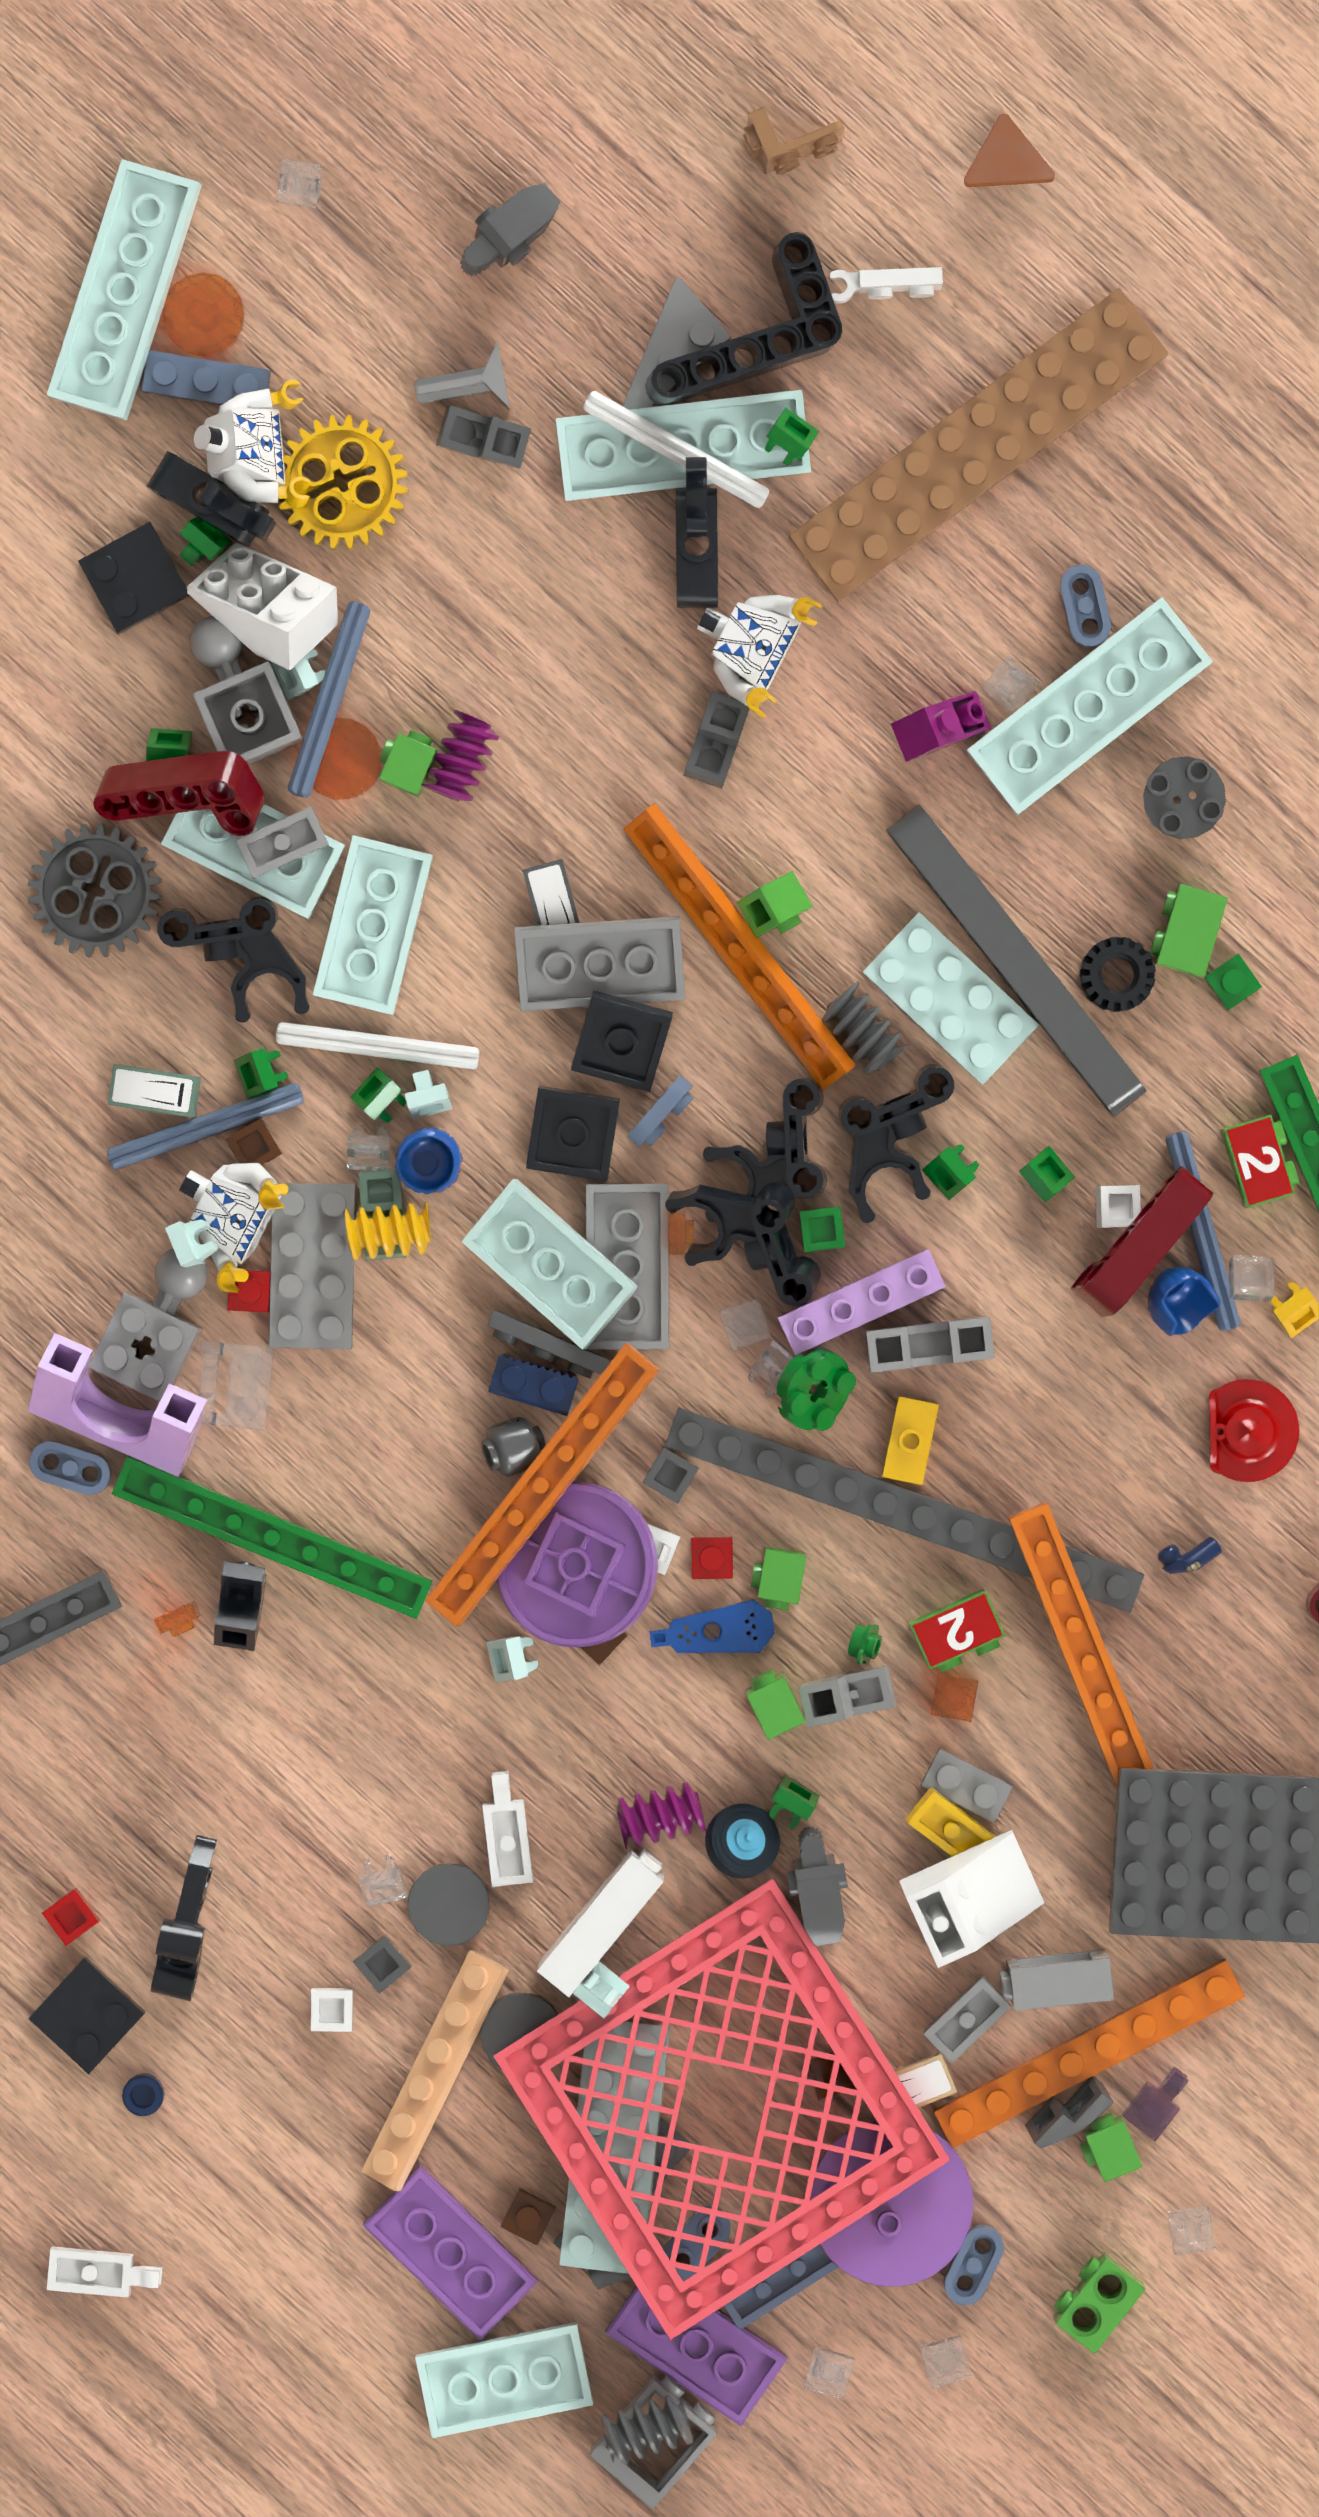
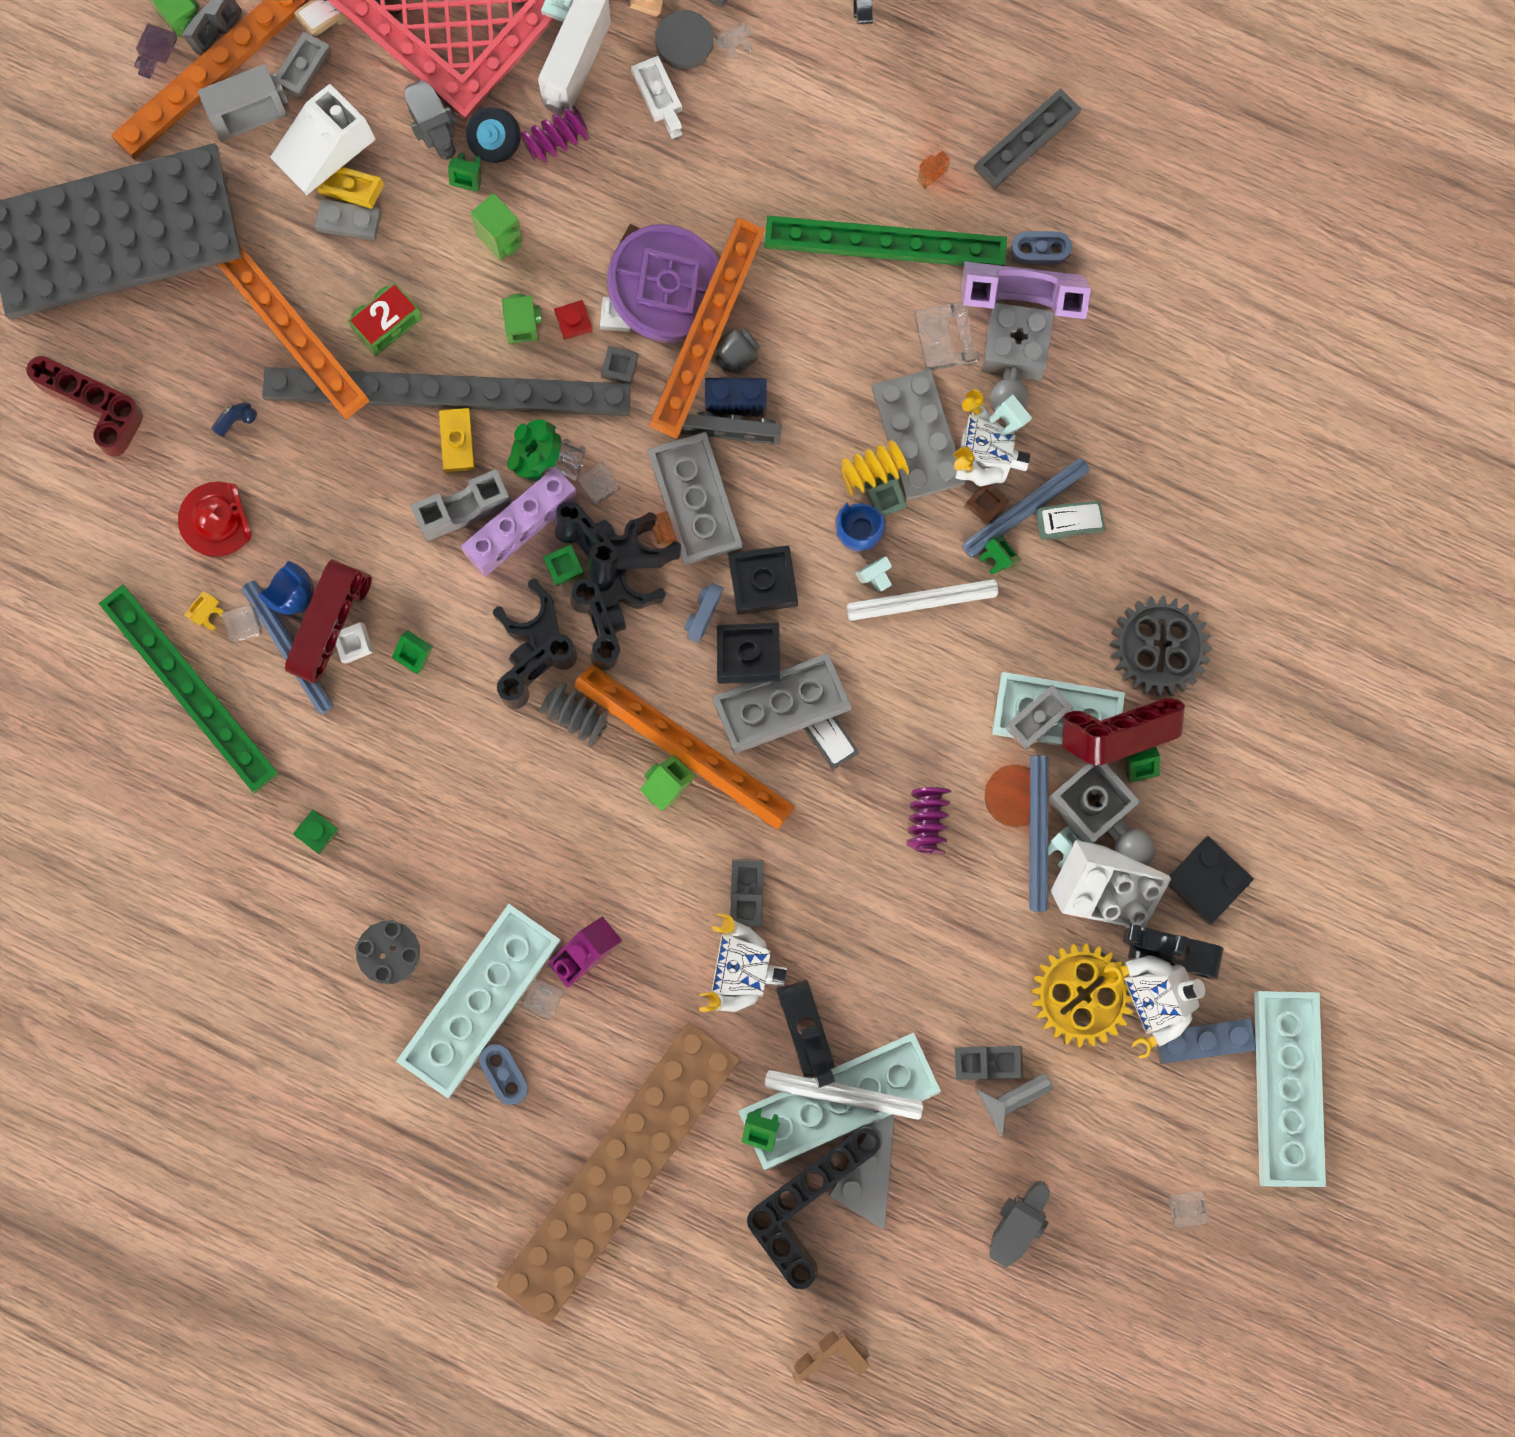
camera: 165 degrees right, 10 degrees down
(203, 314) = (1224, 1090): clear orange tile -> none
(203, 541) = (1169, 919): green tile -> none
(239, 938) = (1044, 643): black piece -> none
(239, 1605) = (892, 188): black brick -> none
(252, 1294) = (952, 404): red plate -> none
(368, 1151) = (903, 522): clear tile -> none
(373, 925) = (953, 682): light aqua plate -> none
(377, 1094) = (912, 563): green tile -> none
(407, 762) = (966, 805): bright green brick -> none
(508, 1658) = (694, 207): light aqua tile -> none
(549, 1264) = (750, 480): light aqua plate -> none
(732, 1630) = (543, 271): blue piece -> none
(847, 1695) = (453, 251): light grey brick -> none
(865, 1643) = (447, 291): green plate -> none
(882, 283) = (728, 1271): white plate -> none
(950, 998) = (519, 757): light aqua plate -> none
(950, 1172) = (483, 632): green tile -> none
(954, 1697) = (373, 275): clear orange plate -> none
(1007, 159) = (661, 1398): piece -> none
(1016, 960) = (479, 798): dark grey beam -> none
(1142, 968) = (396, 792): black tyre -> none
(1189, 930) = (357, 857): bright green brick -> none
(1259, 1160) = (259, 707): red brick -> none

